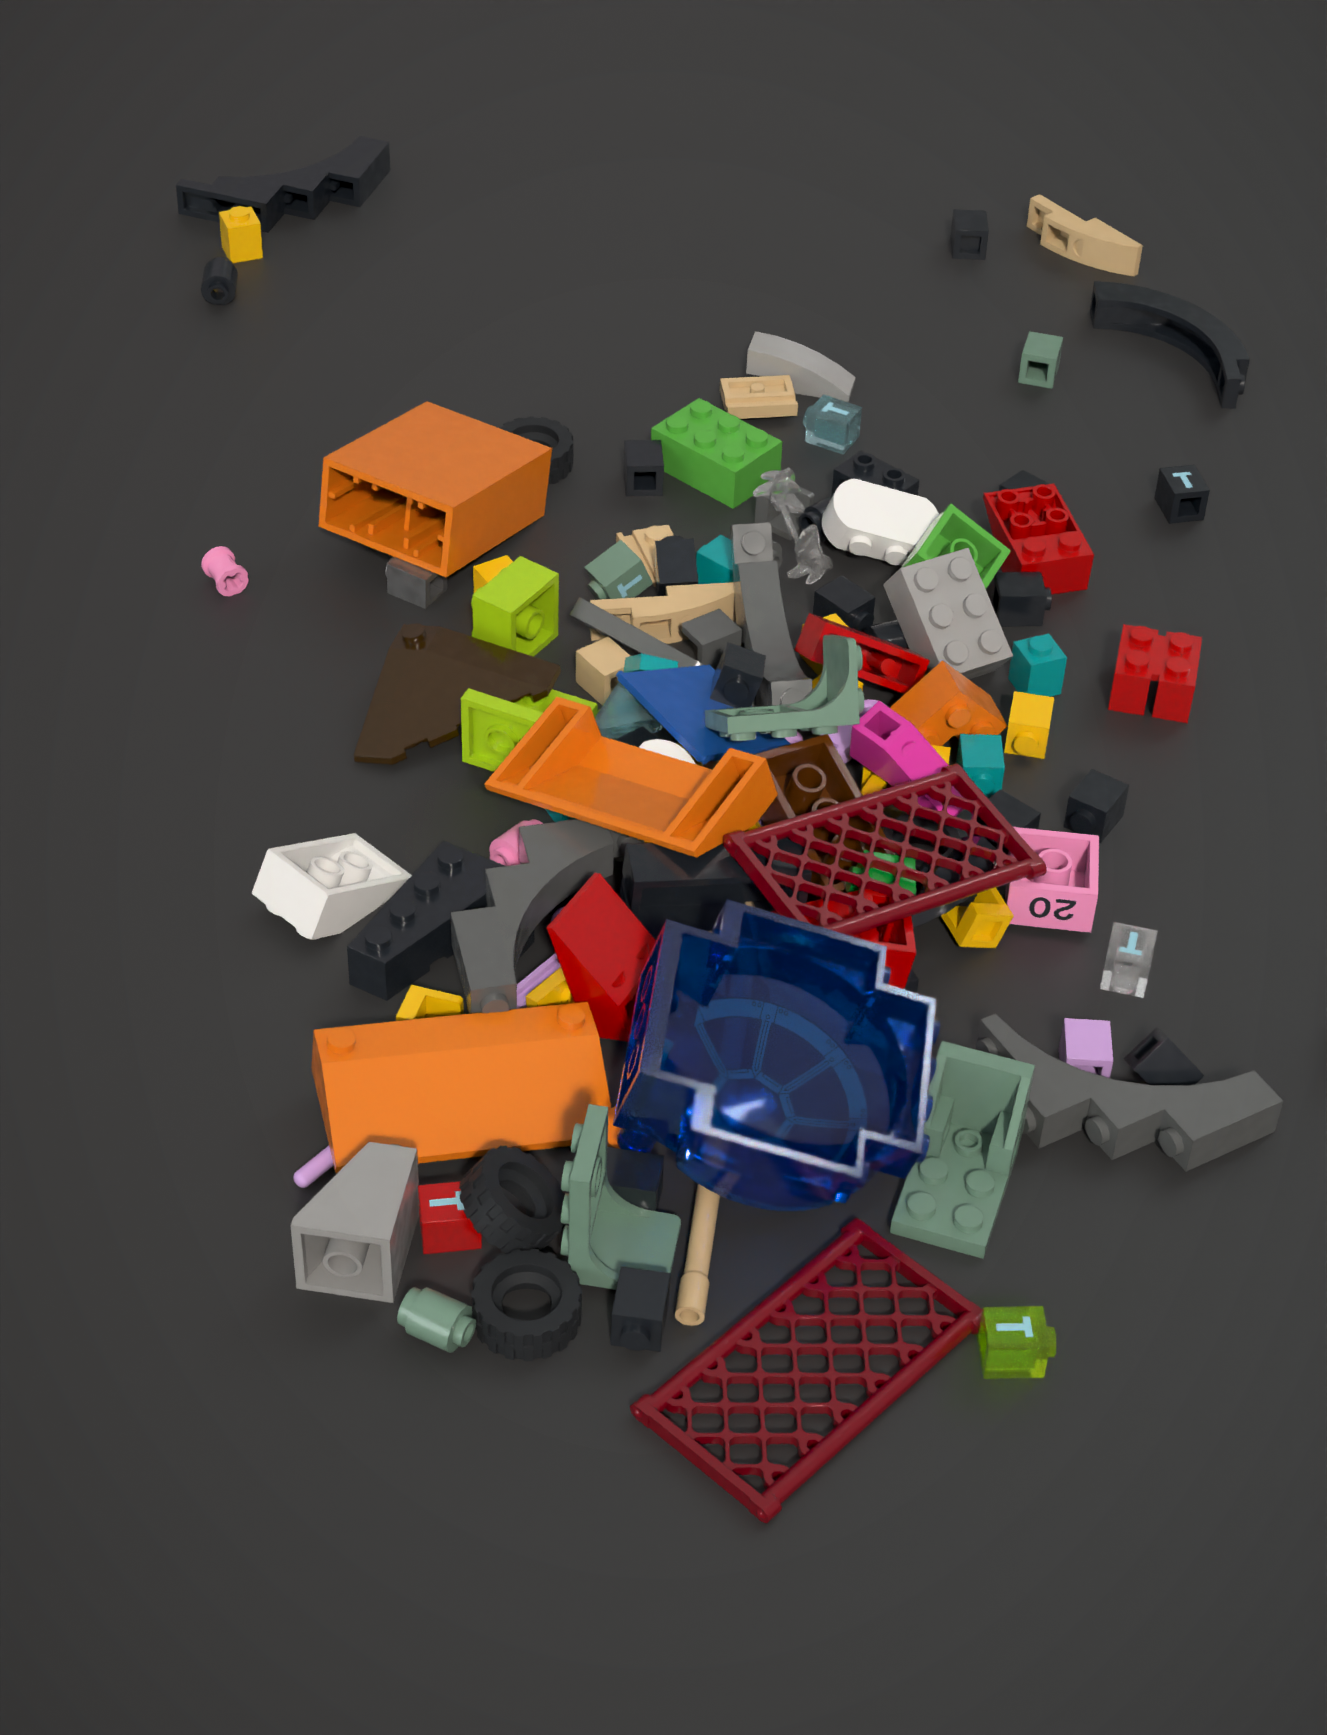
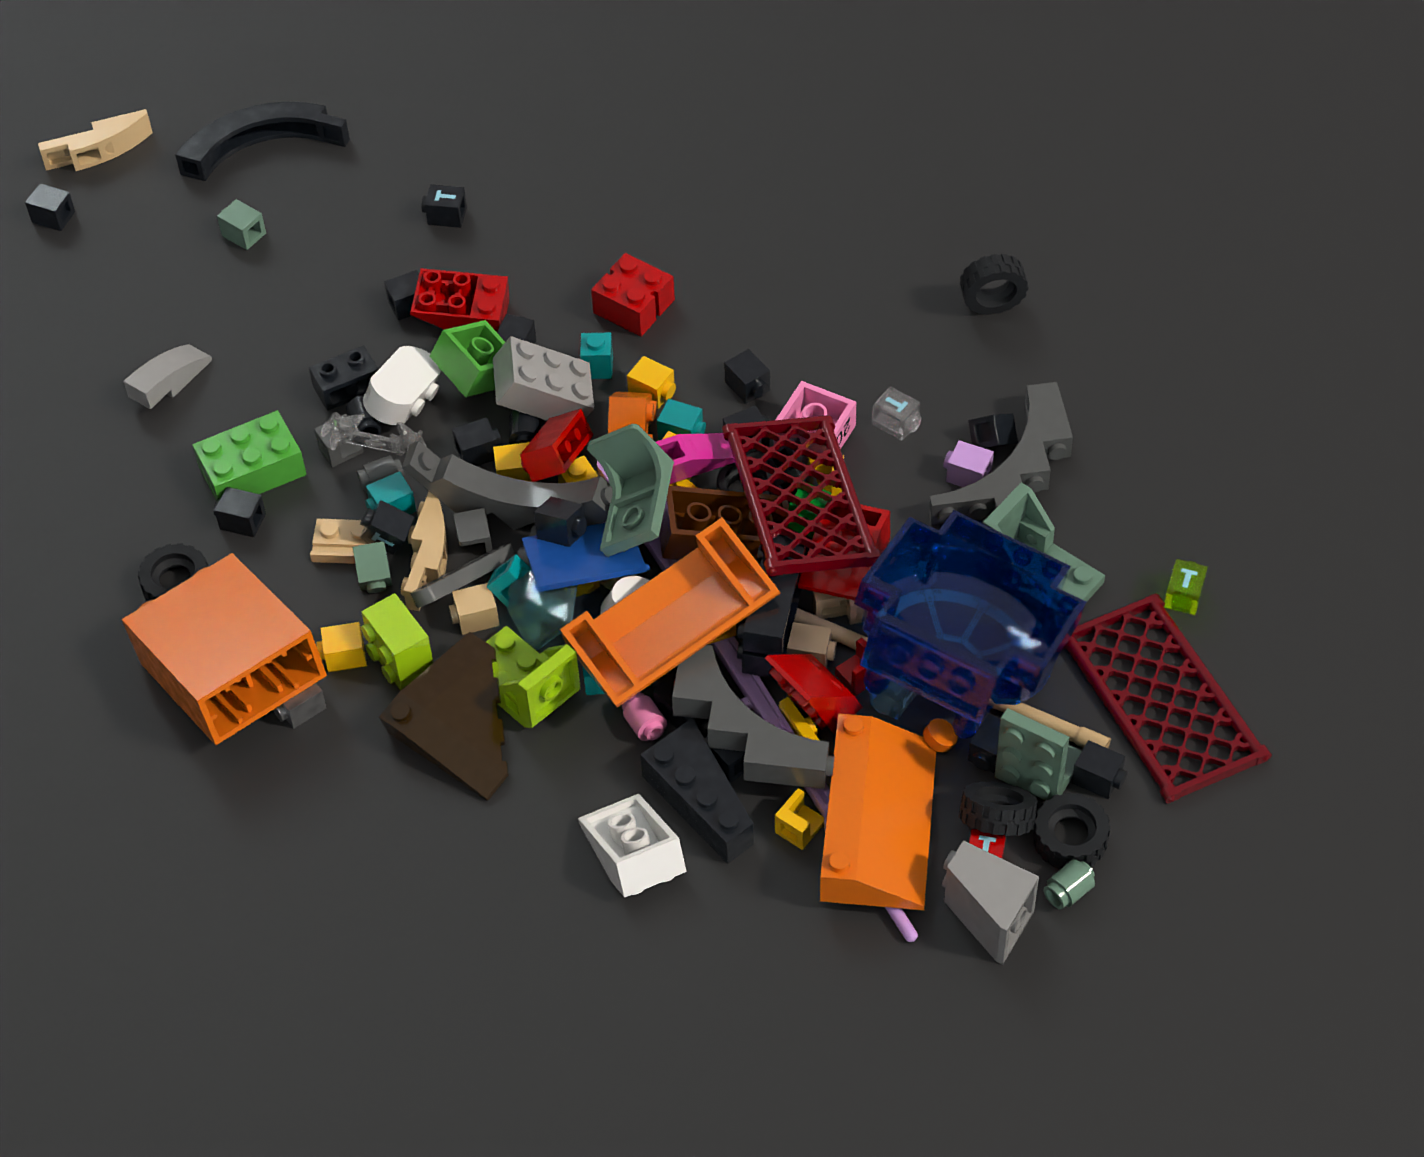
camera: 65 degrees left, 10 degrees up
(221, 565) = (222, 830): bright pink bush -> none
(759, 396) = (185, 411): tan plate -> none
(832, 424) = (250, 376): clear light blue brick -> none

